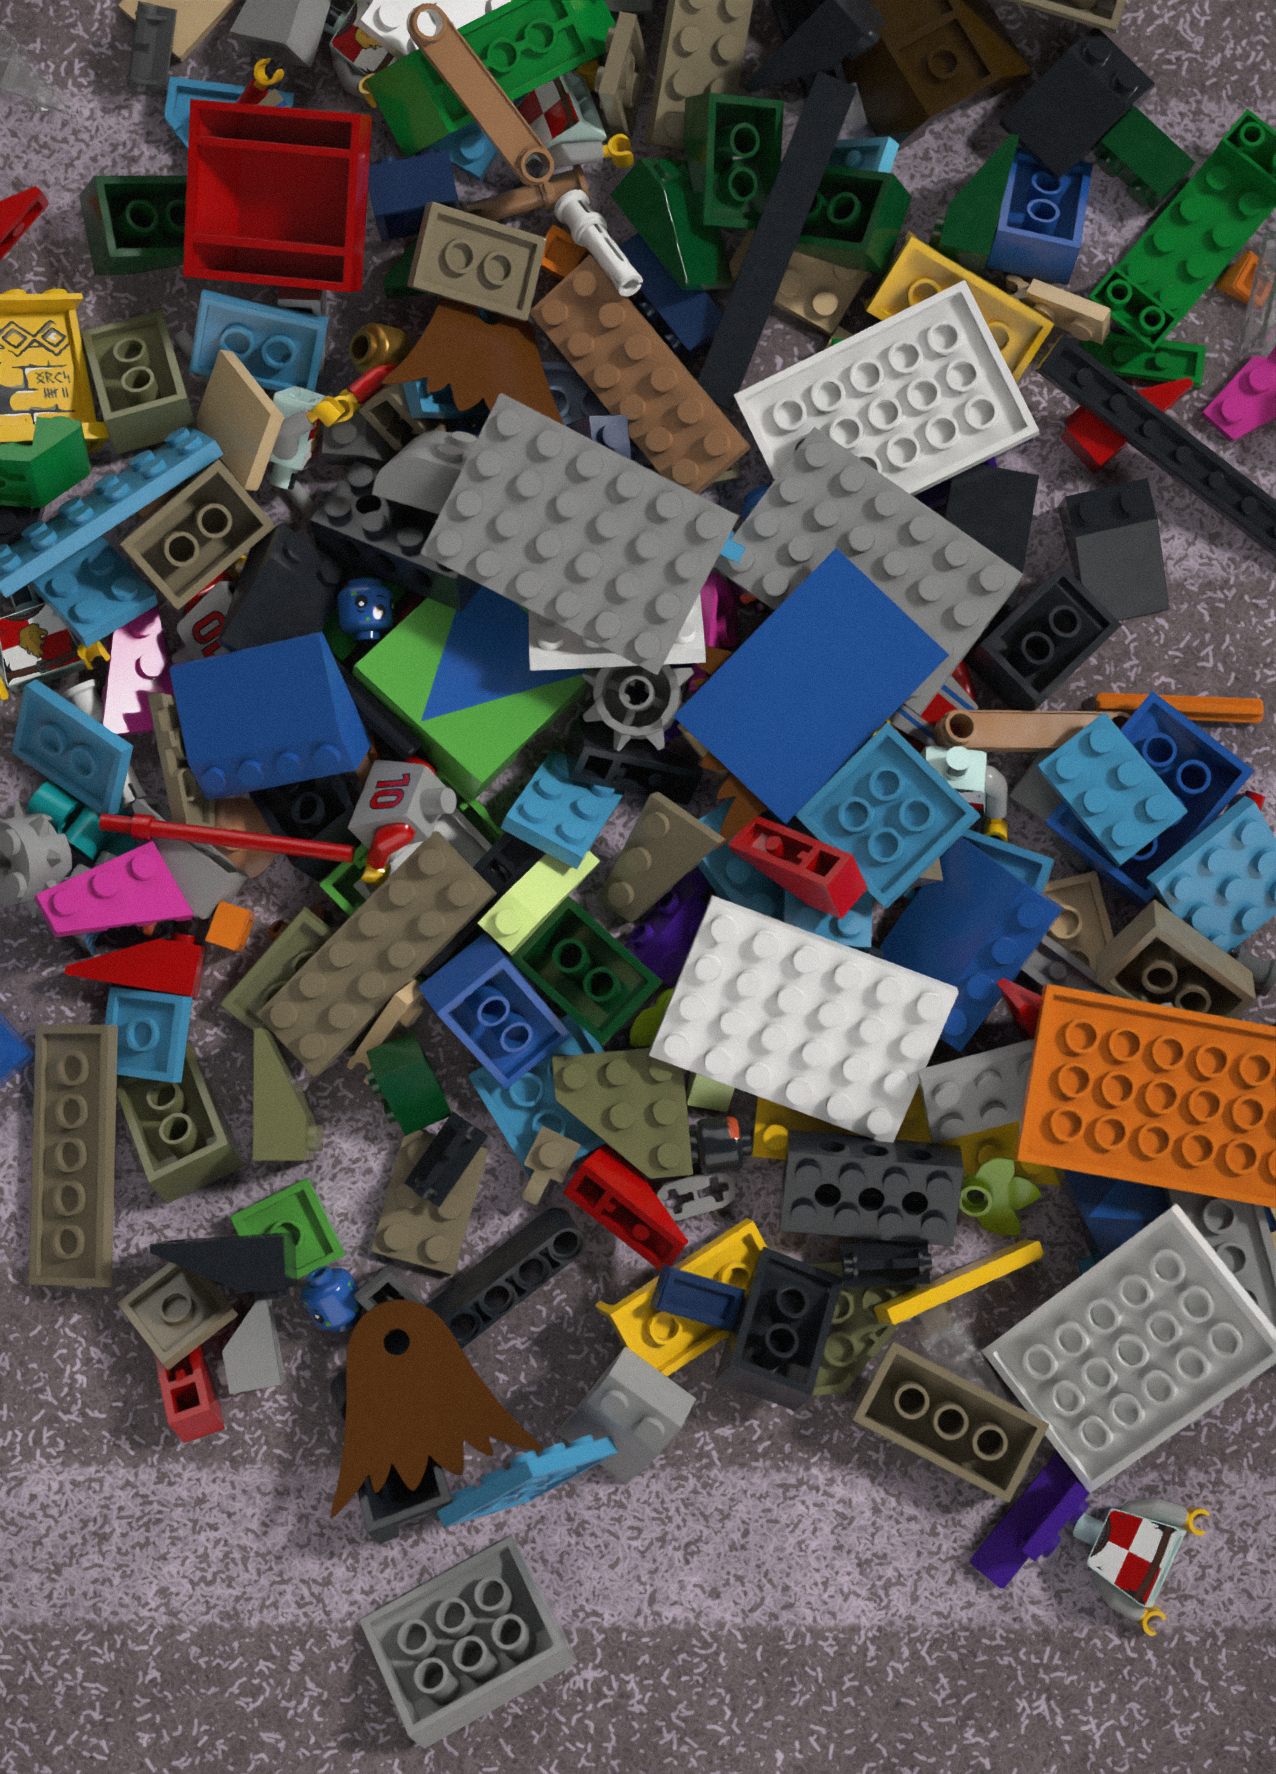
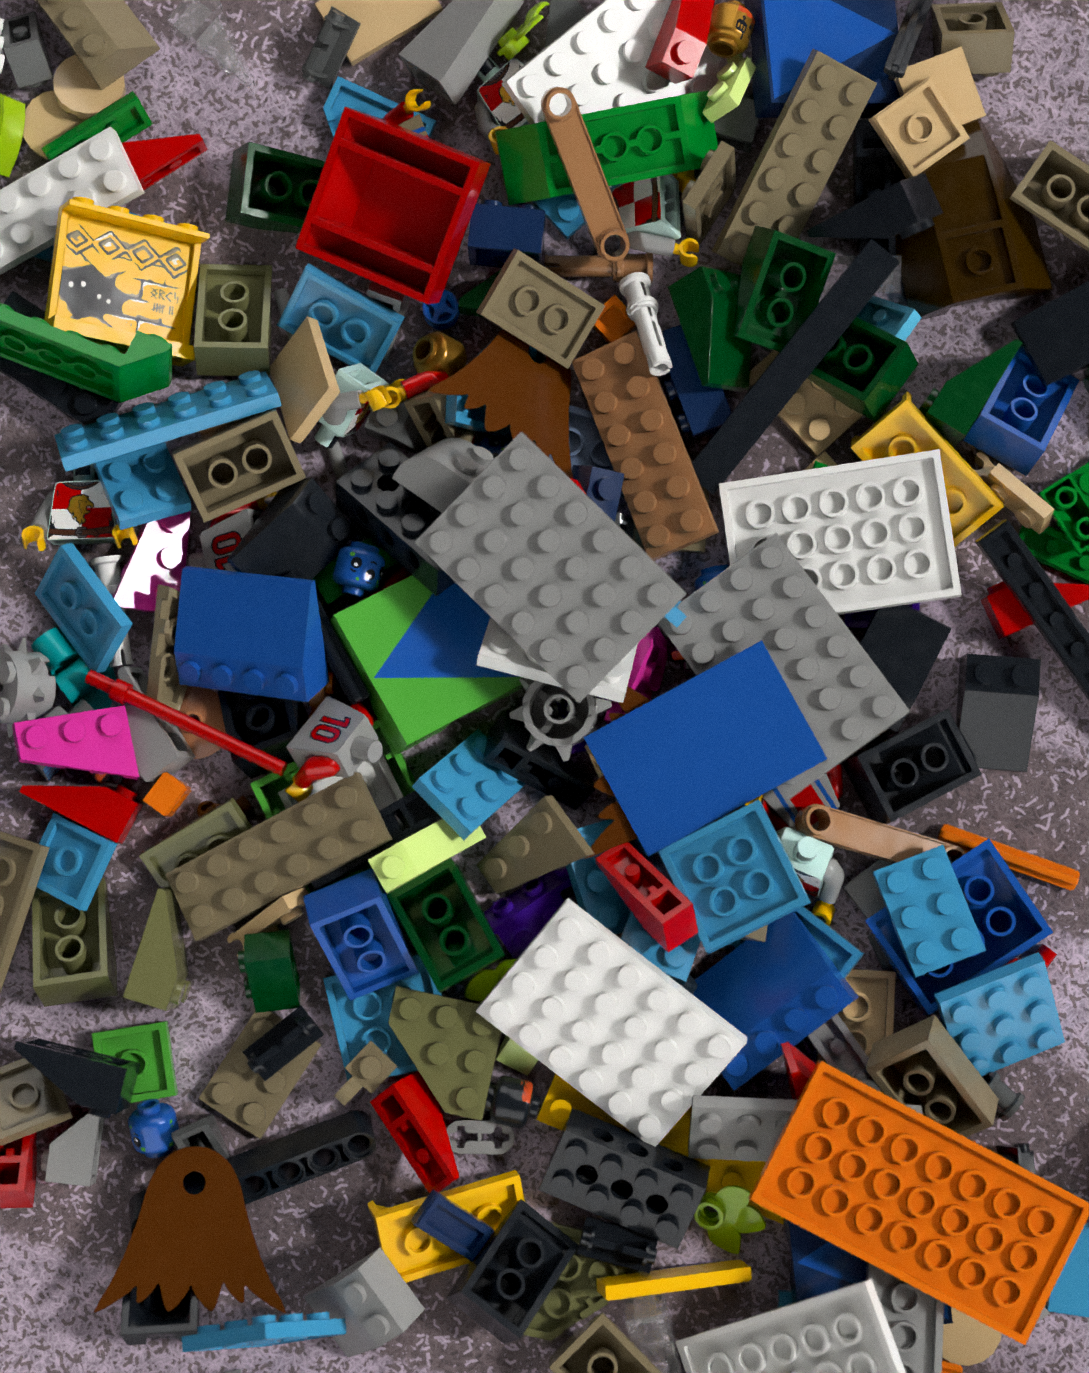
camera: 20 degrees right, 0 degrees up
(371, 291) = (447, 304): none -> blue wheel

